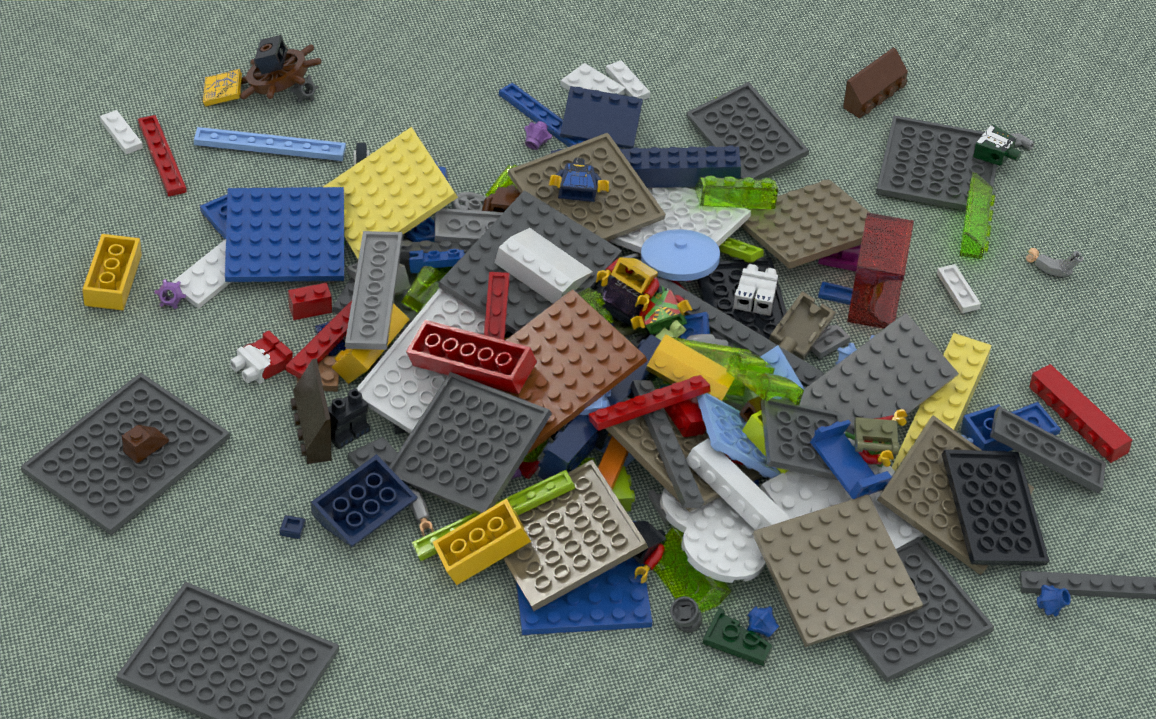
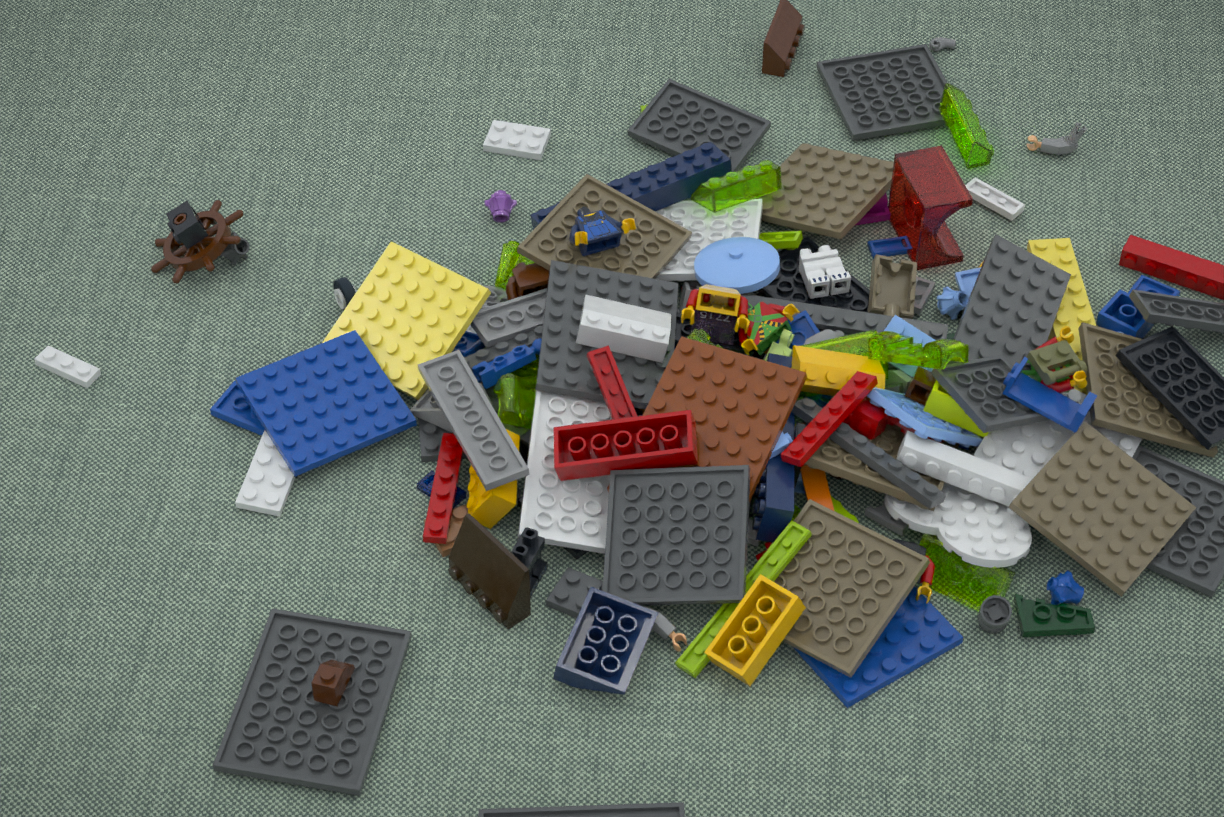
camera: 25 degrees left, 0 degrees up
(112, 272) = (167, 515): yellow brick -> none
(162, 155) = (129, 374): red tile -> none
(165, 298) = (238, 508): medium lavender rock -> none
(222, 87) = (146, 279): yellow tile -> none
(262, 358) = (389, 539): hips -> none
(269, 144) = (235, 318): light blue plate -> none
(292, 527) = (542, 701): dark blue tile -> none
(310, 301) = (396, 460): red brick -> none
(535, 111) = (488, 186): blue tile -> none
(598, 112) = (549, 164): dark blue slope -> none
(624, 76) = (535, 117): white plate -> none
(996, 146) = (934, 55): dark green torso -> none

